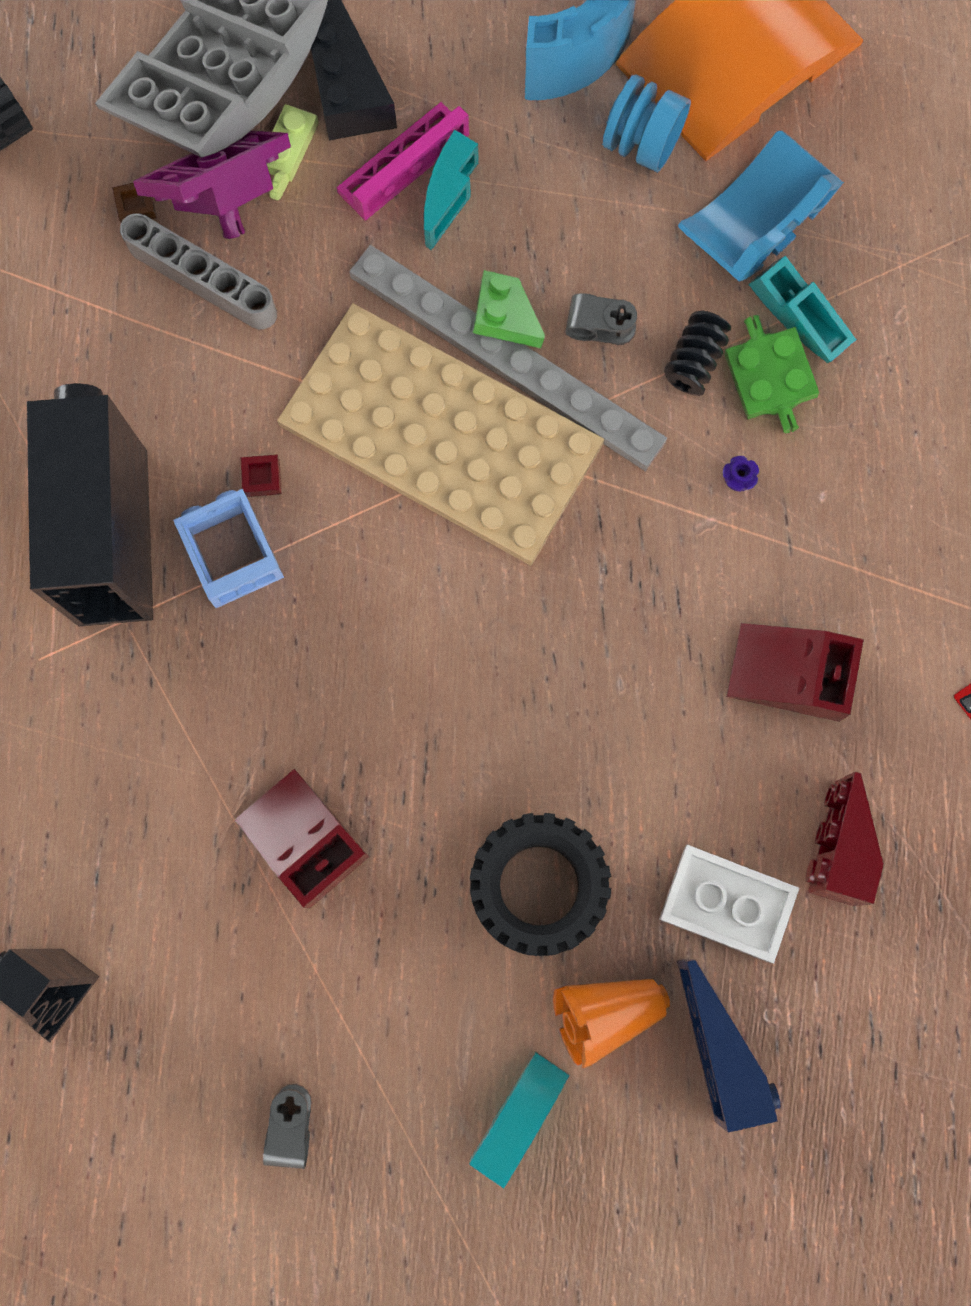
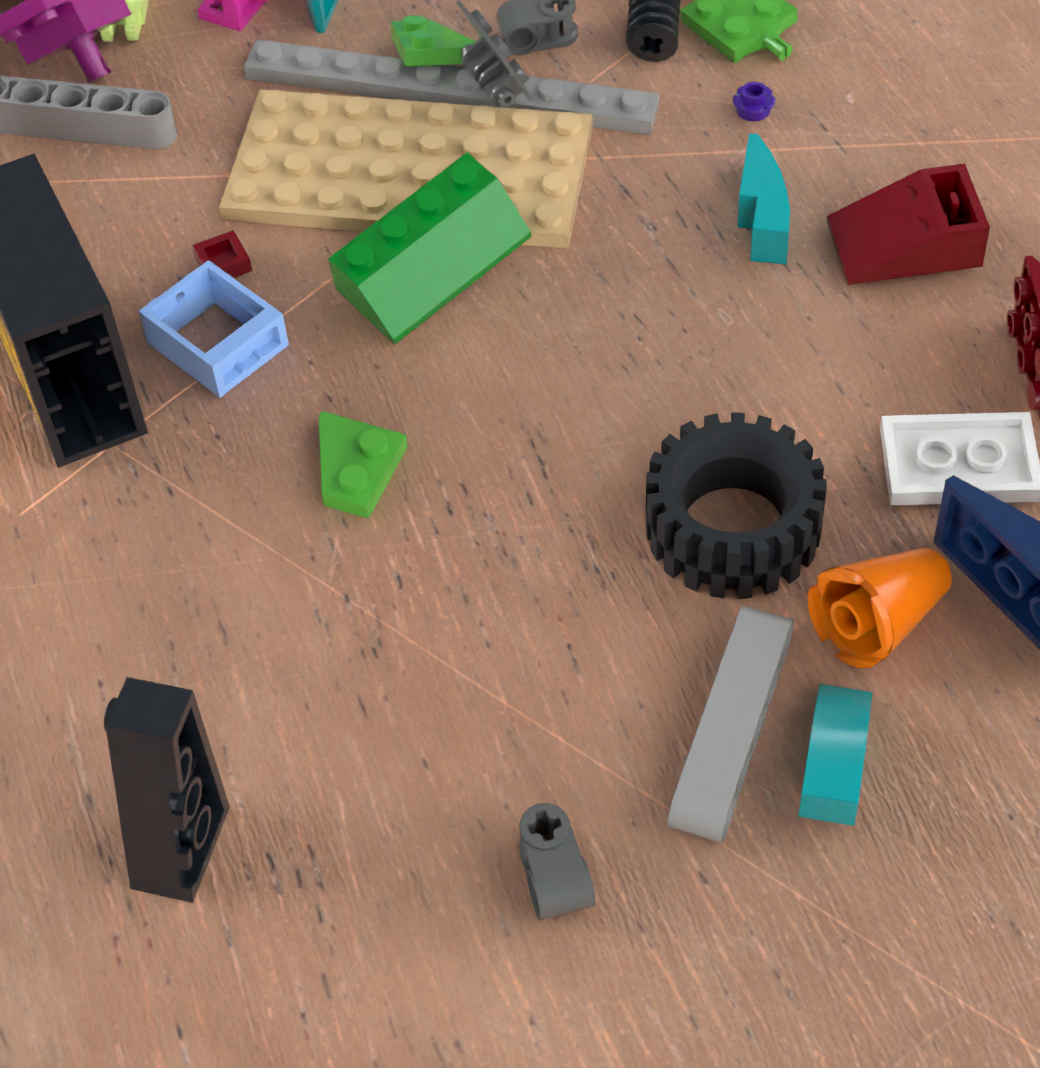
camera: 20 degrees left, 25 degrees down
(289, 716) = (356, 462): none -> bright green wing
(301, 839) = (433, 563): dark red slope -> none
(415, 543) = (429, 248): none -> slope
(458, 1065) = (731, 724): none -> light grey beam
(538, 364) = (489, 65): none -> dark grey hinge
(697, 592) = (764, 204): none -> teal slope

